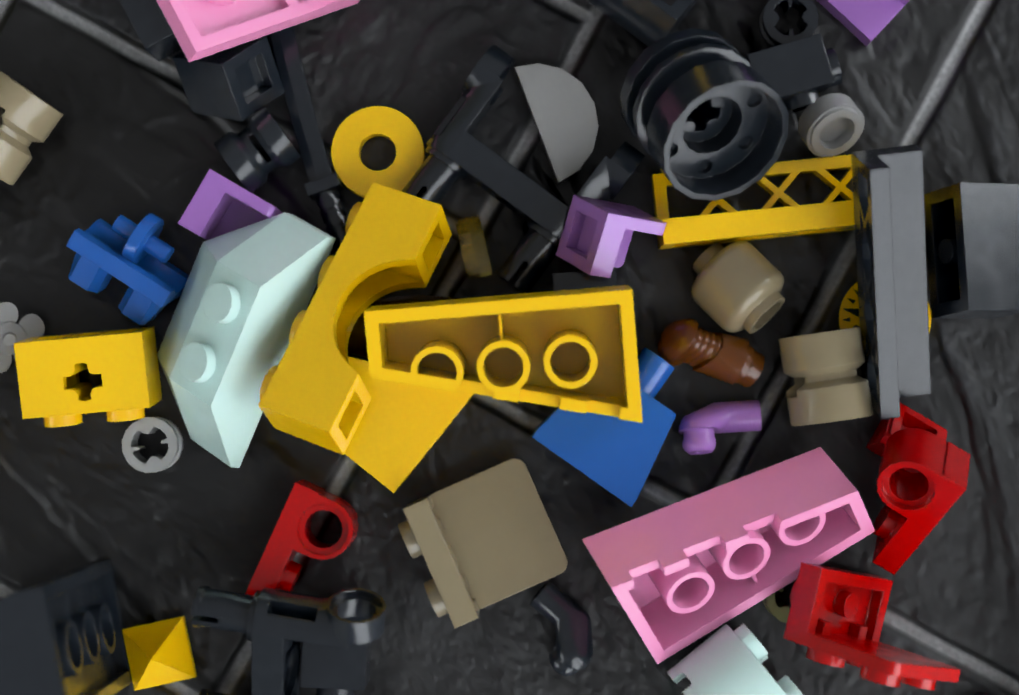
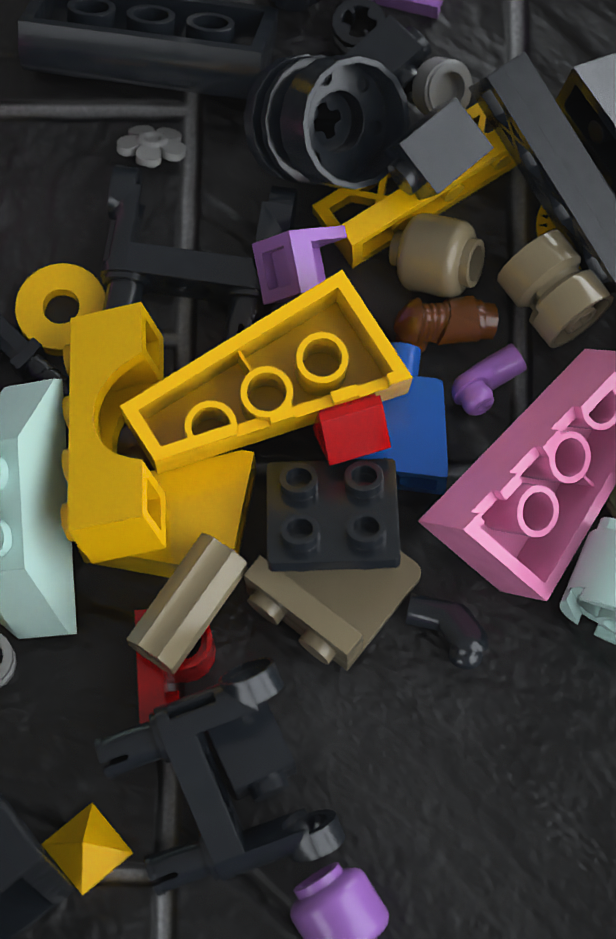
camera: 25 degrees left, 15 degrees down
(339, 510) = (187, 603): none -> dark tan axle
(473, 247) = (187, 338): clear yellow tile -> none
(508, 497) = (332, 515): none -> black bracket
(537, 39) = (152, 145): none -> light grey plant
(562, 116) = (206, 197): light grey tile -> none
(566, 432) = (352, 429): none -> red slope
(786, 203) = (436, 150): none -> black brick

